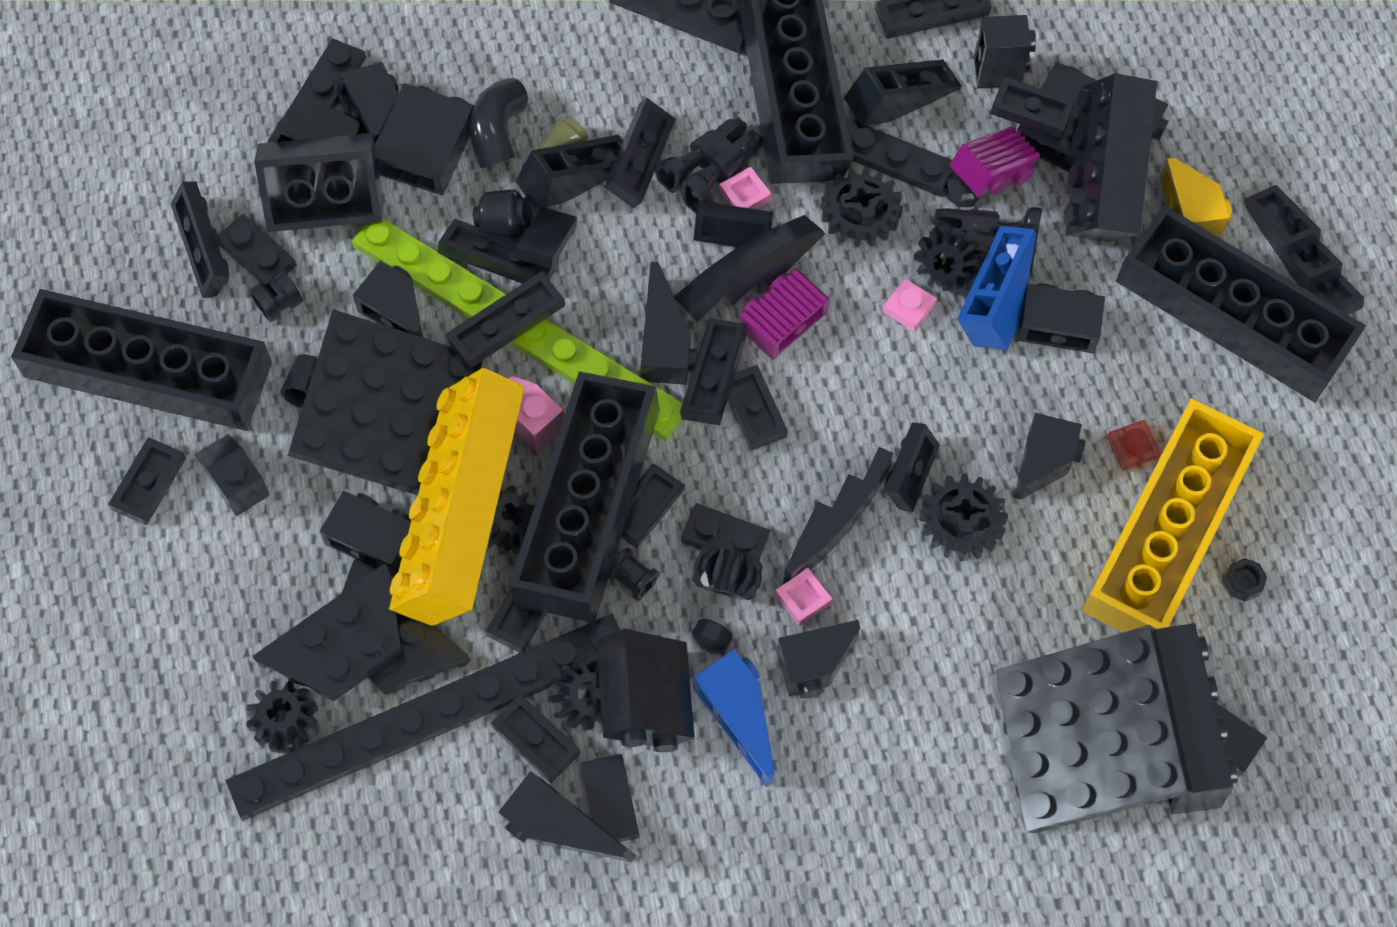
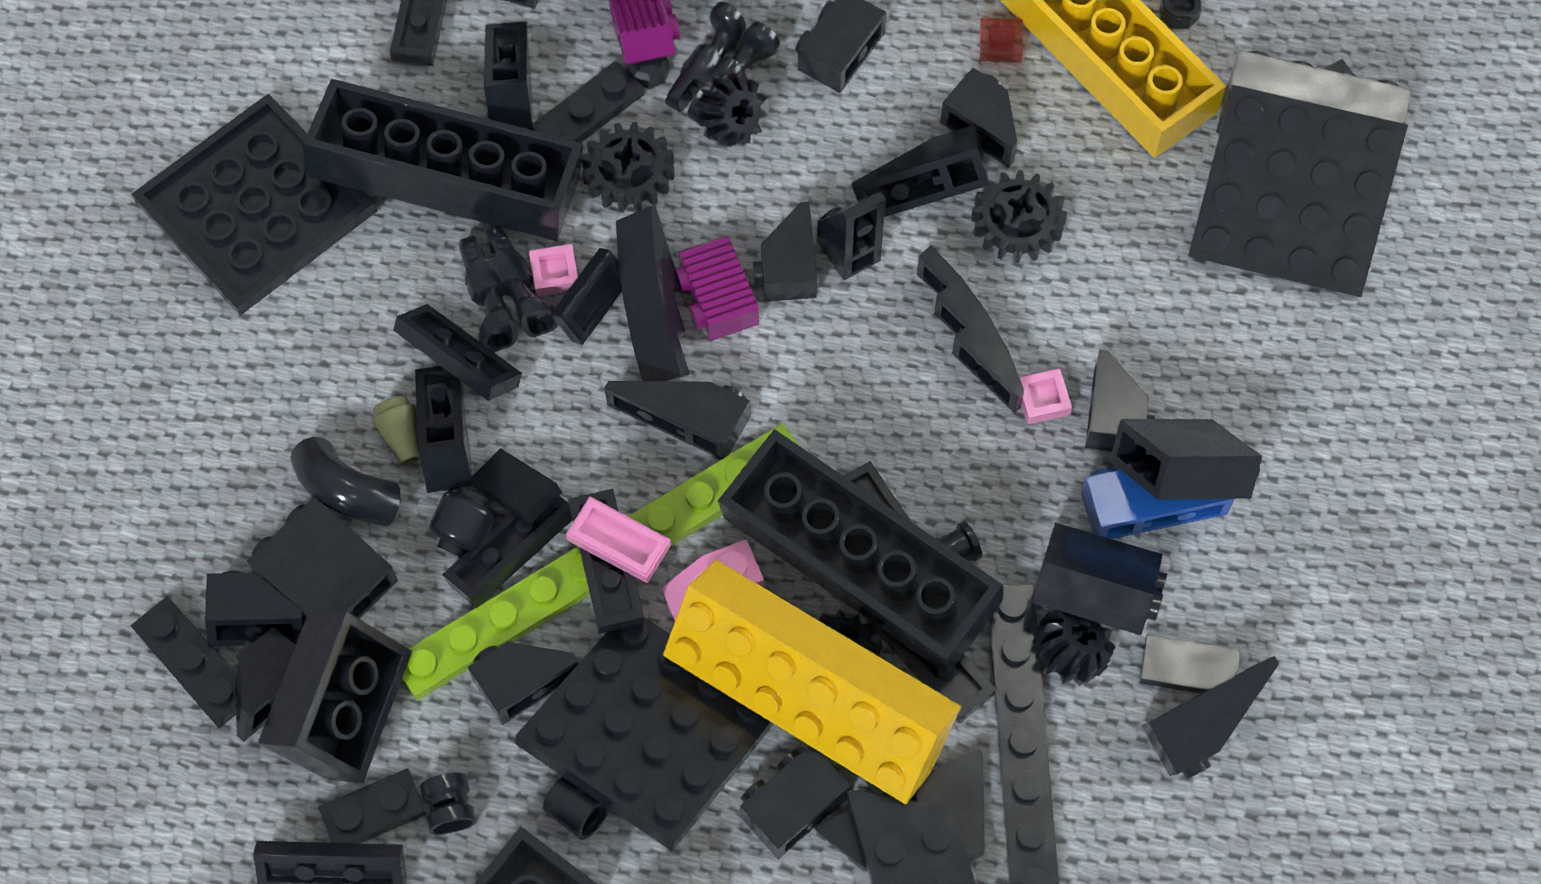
camera: 65 degrees left, 0 degrees up
(520, 317) = (618, 539): none -> bright pink tile
(535, 738) = (1098, 714): black plate -> none
(711, 636) = (1053, 498): black tile -> none
(714, 372) = (759, 378): black tile -> none
(724, 531) = (942, 445): black plate -> none
(727, 572) = (996, 452): black gear -> none
(756, 409) = (811, 360): black plate -> none
(780, 720) = (1185, 459): none -> black brick
(837, 355) = (788, 259): none -> black slope
(871, 389) = (853, 235): none -> black slope
(909, 304) = (757, 171): bright pink plate -> none
(911, 467) = (930, 230): black plate -> none
(964, 429) = (928, 172): none -> black slope
(999, 290) = (789, 74): blue slope -> none

